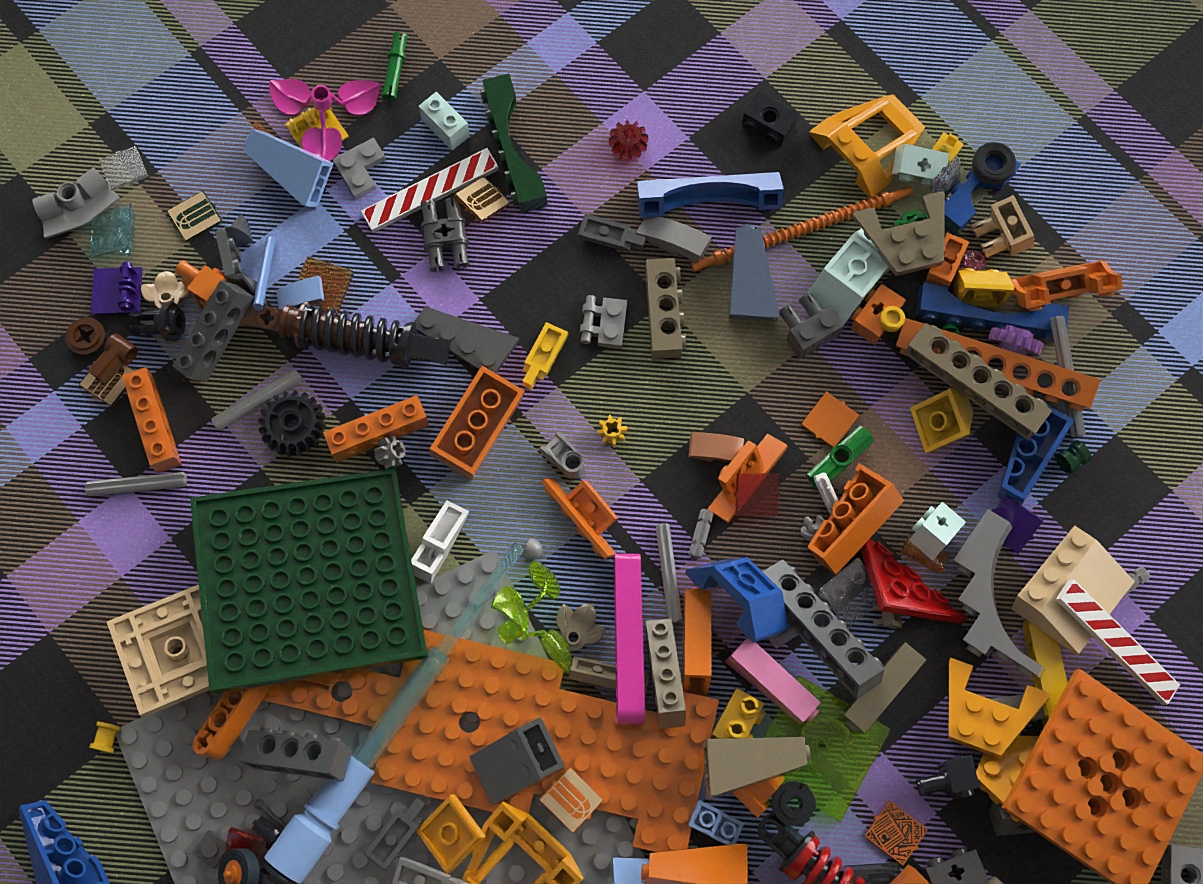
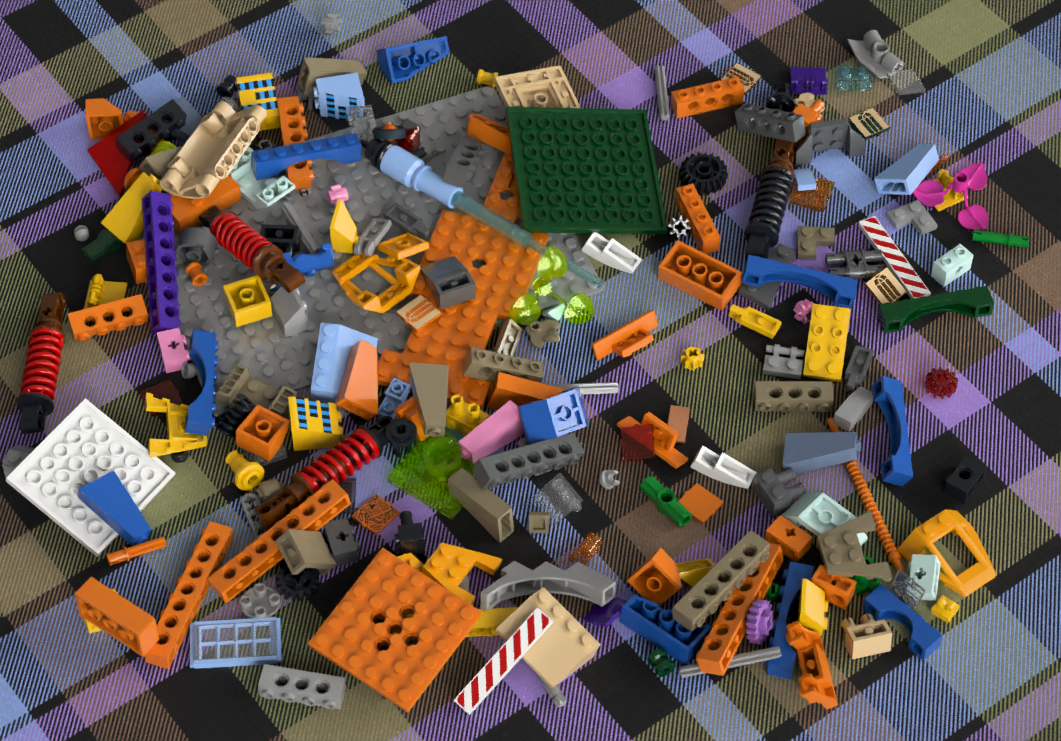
camera: 95 degrees right, 20 degrees down
(74, 336) = (773, 59): reddish brown gear -> none
(116, 354) = (757, 79): reddish brown piece -> none
(256, 400) = (719, 151): light grey axle -> none
(264, 273) = (816, 153): medium blue bar -> none
(398, 291) = (810, 237): none -> dark tan plate
(491, 251) = (837, 288): none -> blue arch
(528, 293) = (803, 311): none -> bright pink gear
(533, 549) = (602, 307): light grey hinge -> none
(541, 615) = (554, 312): none -> light aqua slope
(560, 453) = (673, 329): light grey piece -> none
(579, 267) = (826, 342): none -> yellow plate
(628, 640) = (551, 354): dark pink beam -> none
(701, 533) = (609, 410): light grey axle -> none
(780, 392) = (722, 468): none -> white slope
(826, 490) = (634, 487): white axle -> none
(855, 518) = (613, 498): orange wedge -> none
(892, 319) = (780, 536): yellow tile -> none
(900, 588) = (559, 527): red tile -> none
(936, 530) = (601, 552): light aqua brick -> none
(967, 463) = (656, 578): none -> orange slope
(974, 260) = (832, 613): clear pink plate -> none
(993, 149) = (927, 614): black tyre -> none

